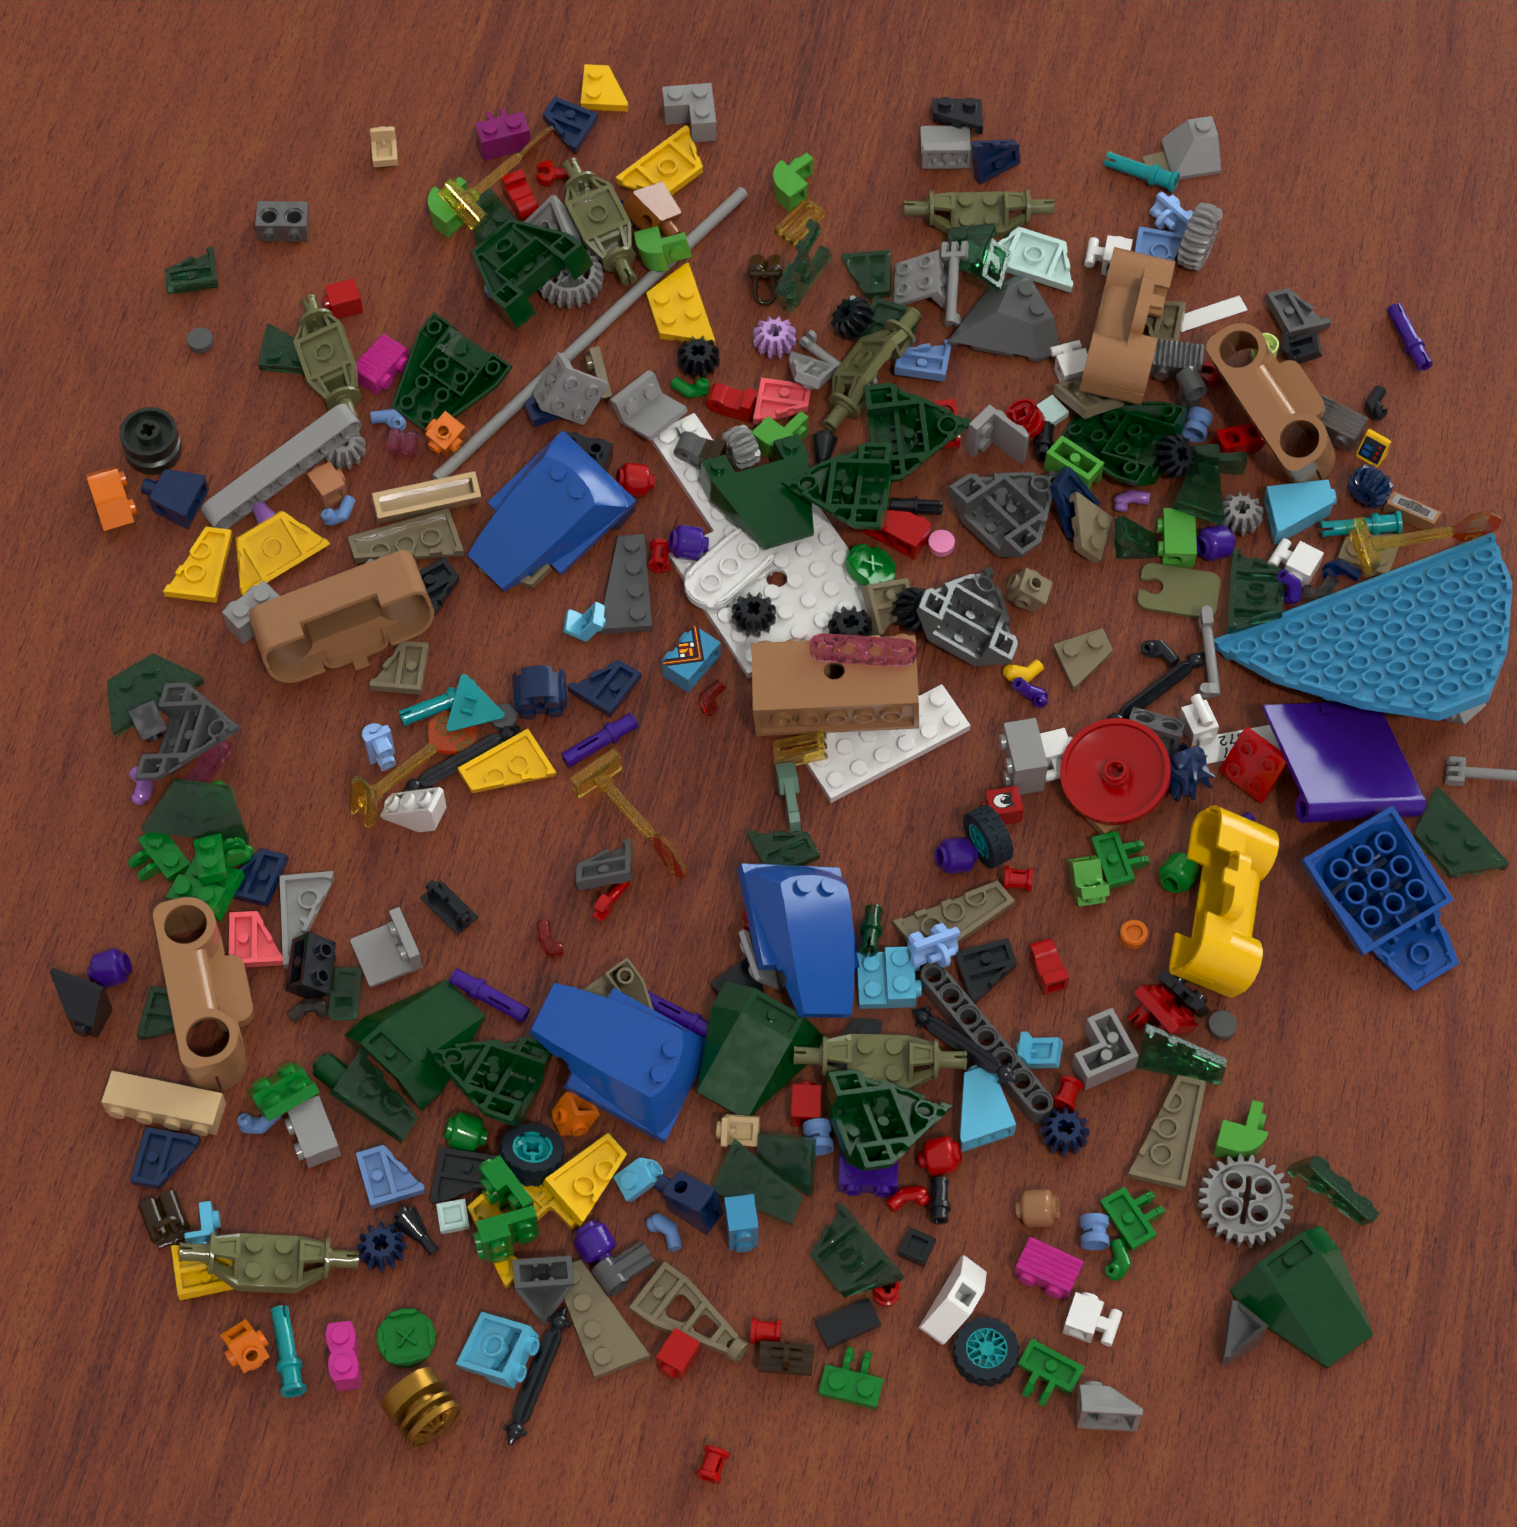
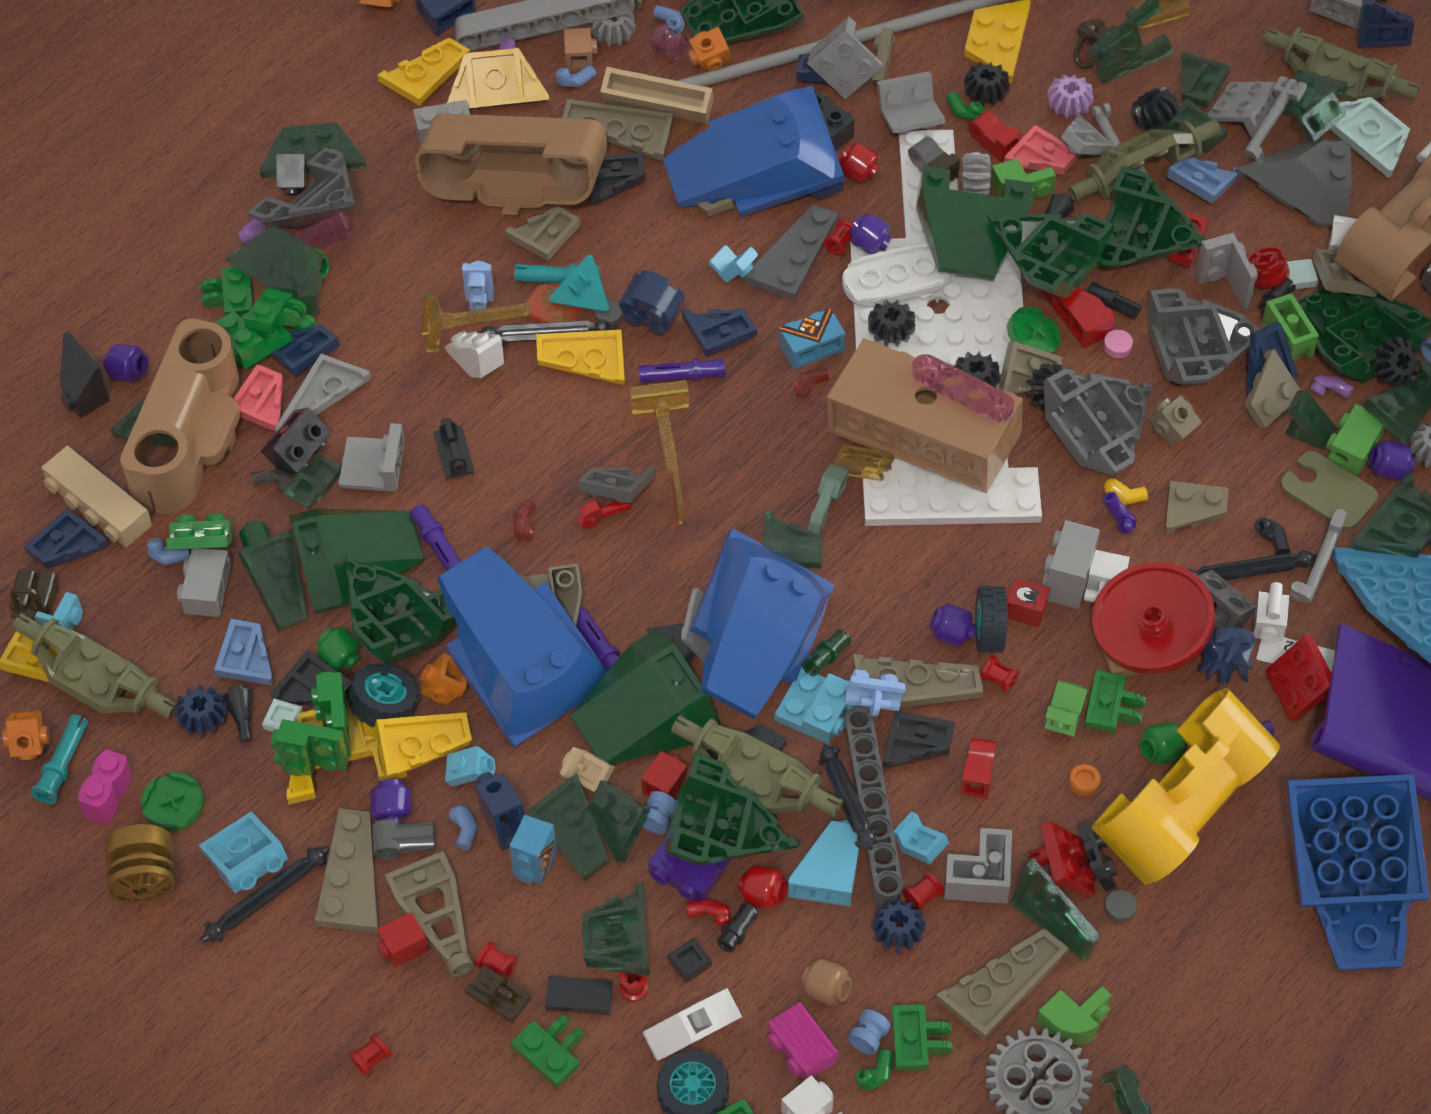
camera: 30 degrees right, 5 degrees down
(543, 1283) = (318, 812): dark grey slope -> none

